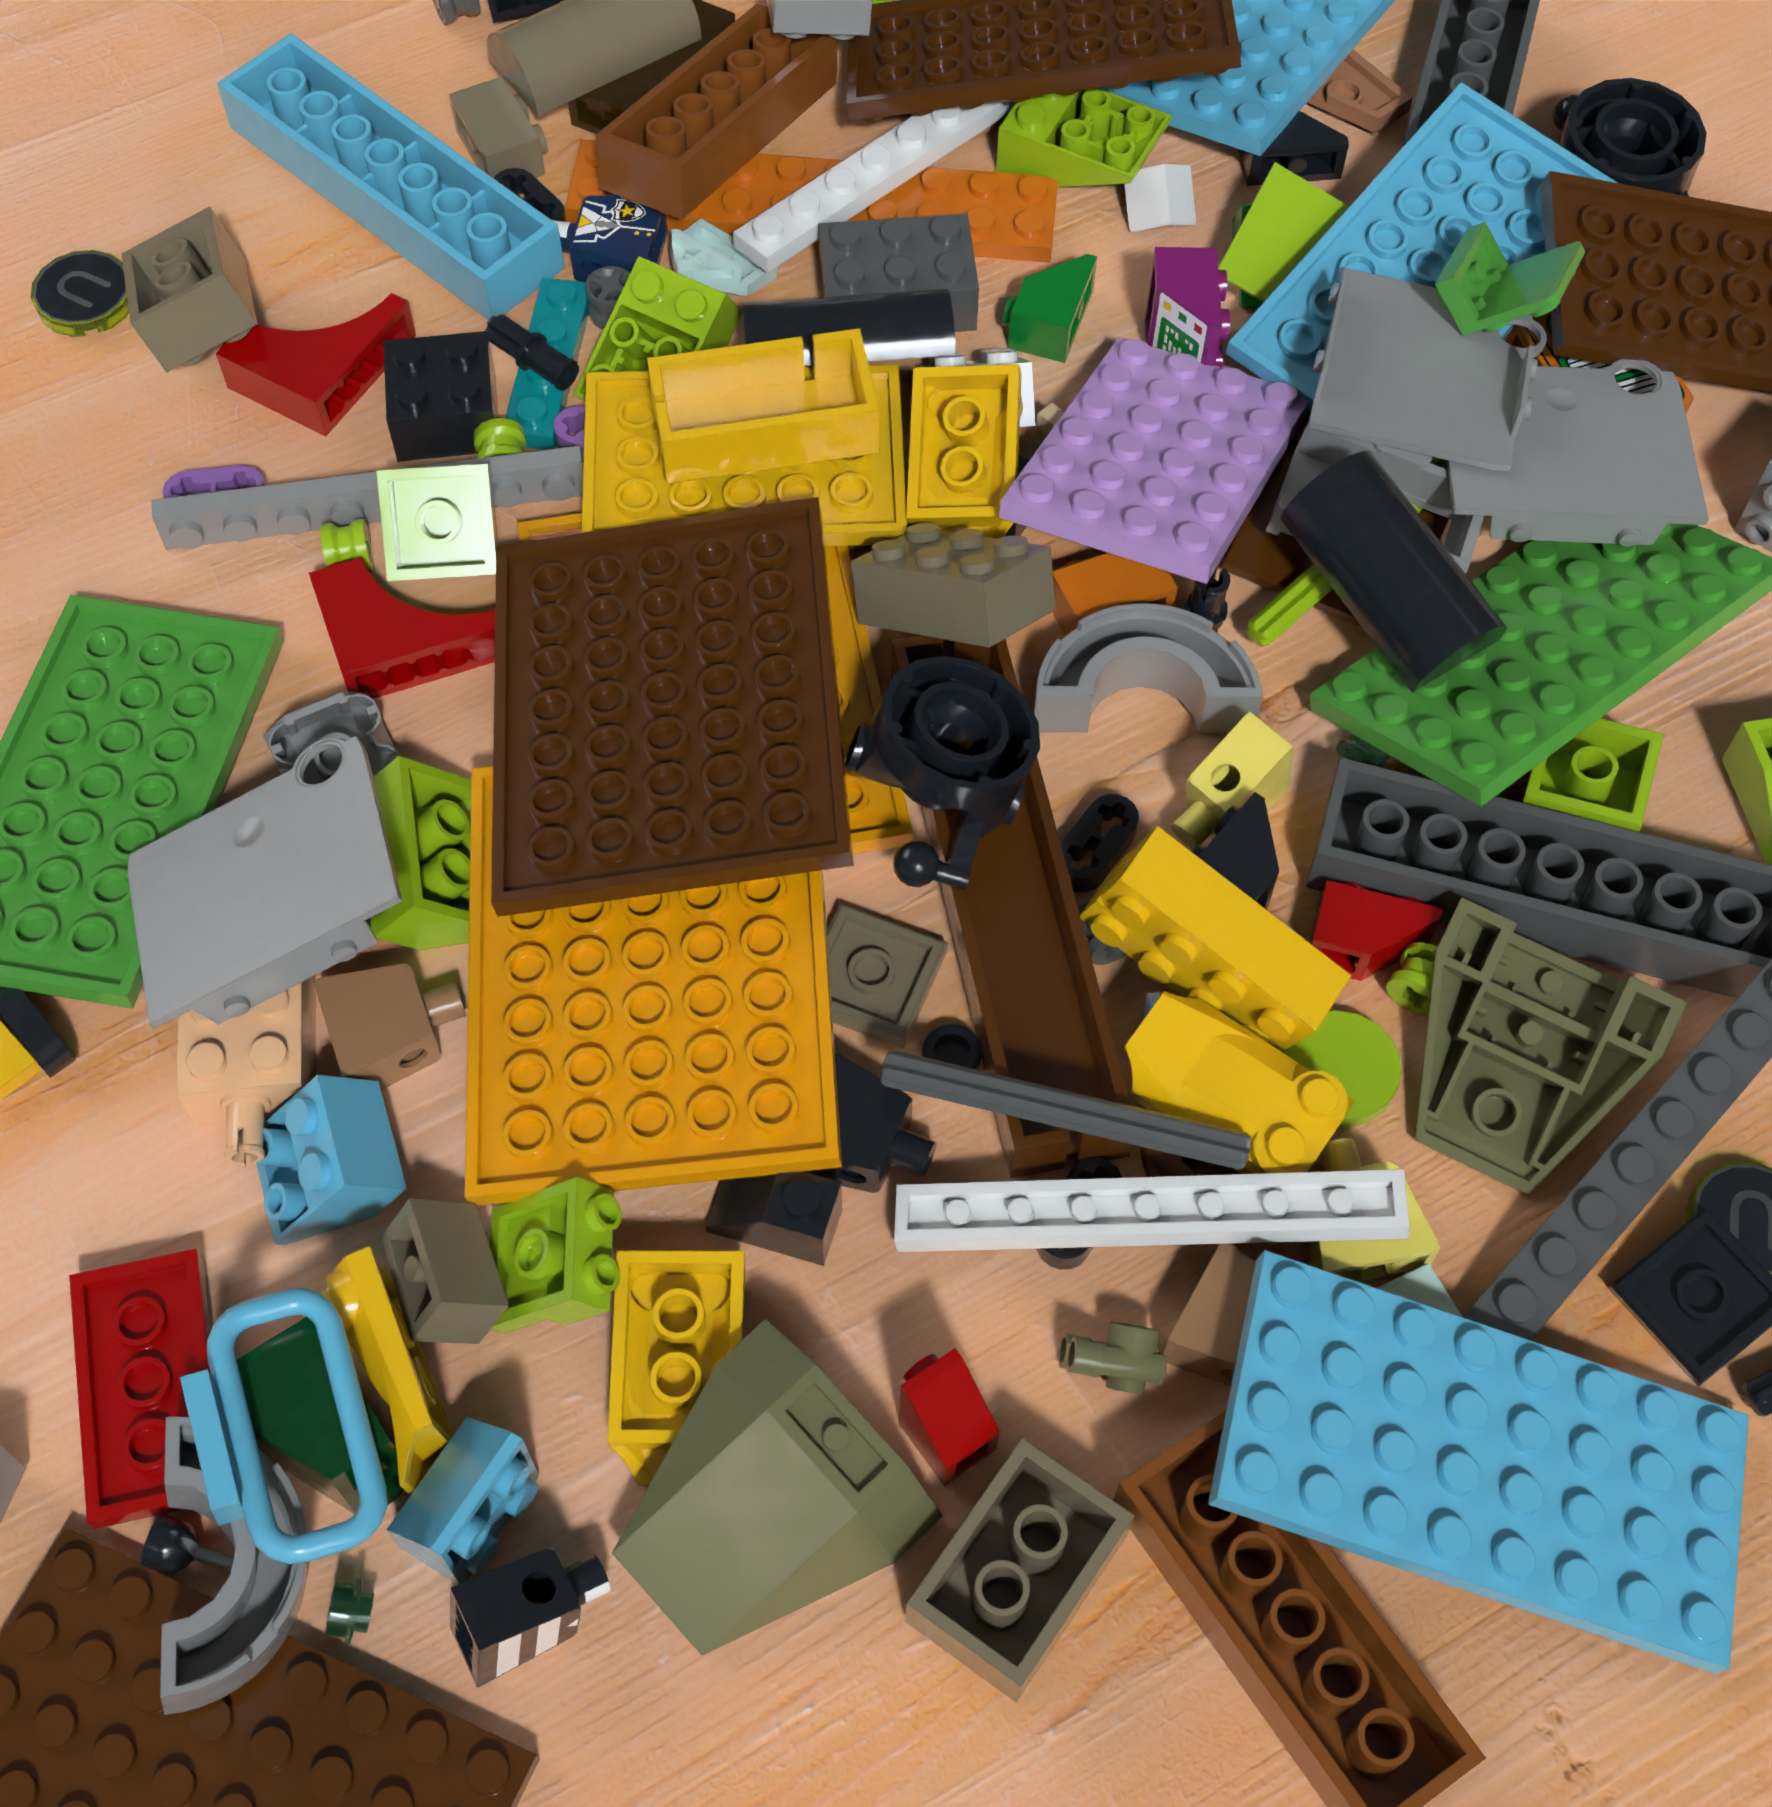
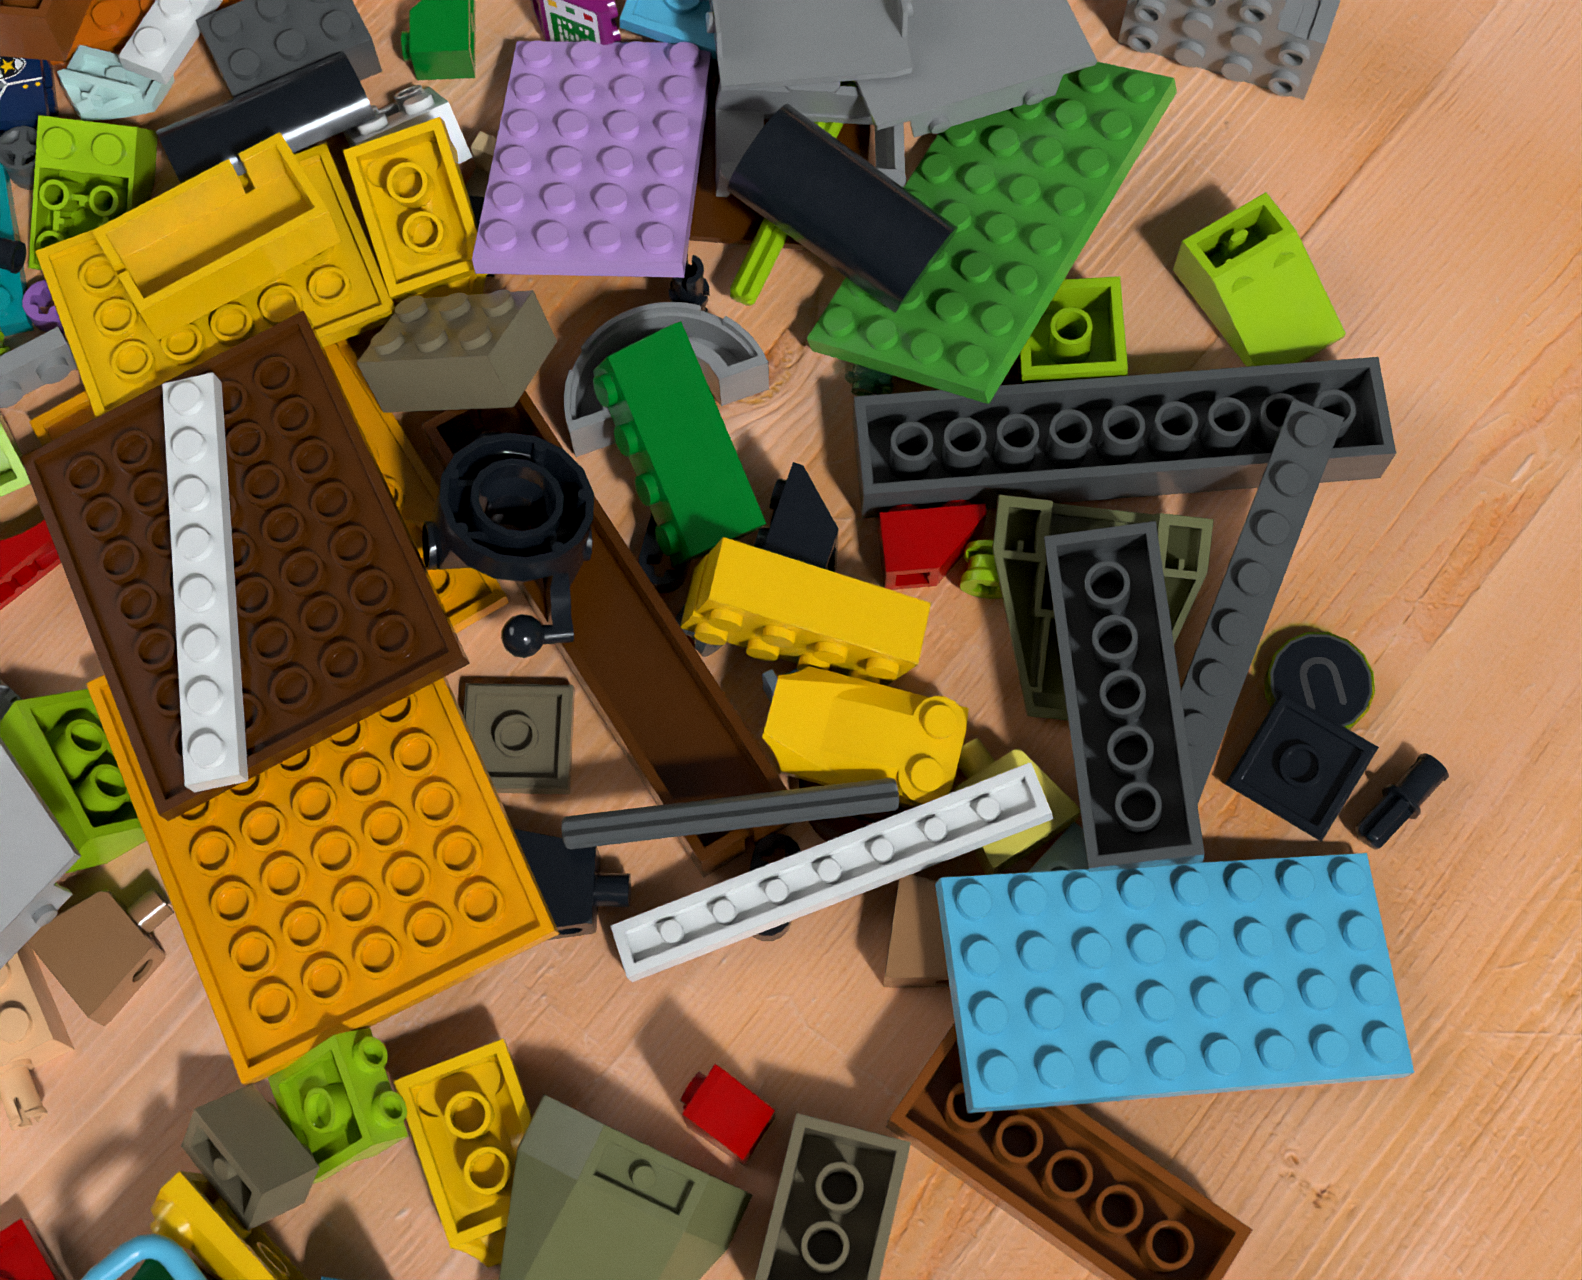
camera: 20 degrees left, 10 degrees up
(328, 1159) = (105, 1091): medium azure slope -> none
(621, 711) = (204, 585): none -> white plate
(780, 1213) = (519, 988): black slope -> none
(953, 1045) = (613, 785): black tile -> none
(1105, 583) = (585, 303): orange brick -> none
(1126, 1359) = (855, 1003): olive plate -> none
(1141, 734) = (676, 445): none -> green slope
(1243, 763) = (778, 432): light yellow torso -> none
(1359, 1057) = (955, 665): lime tile -> none
(1527, 1145) = (1123, 698): none -> dark grey brick

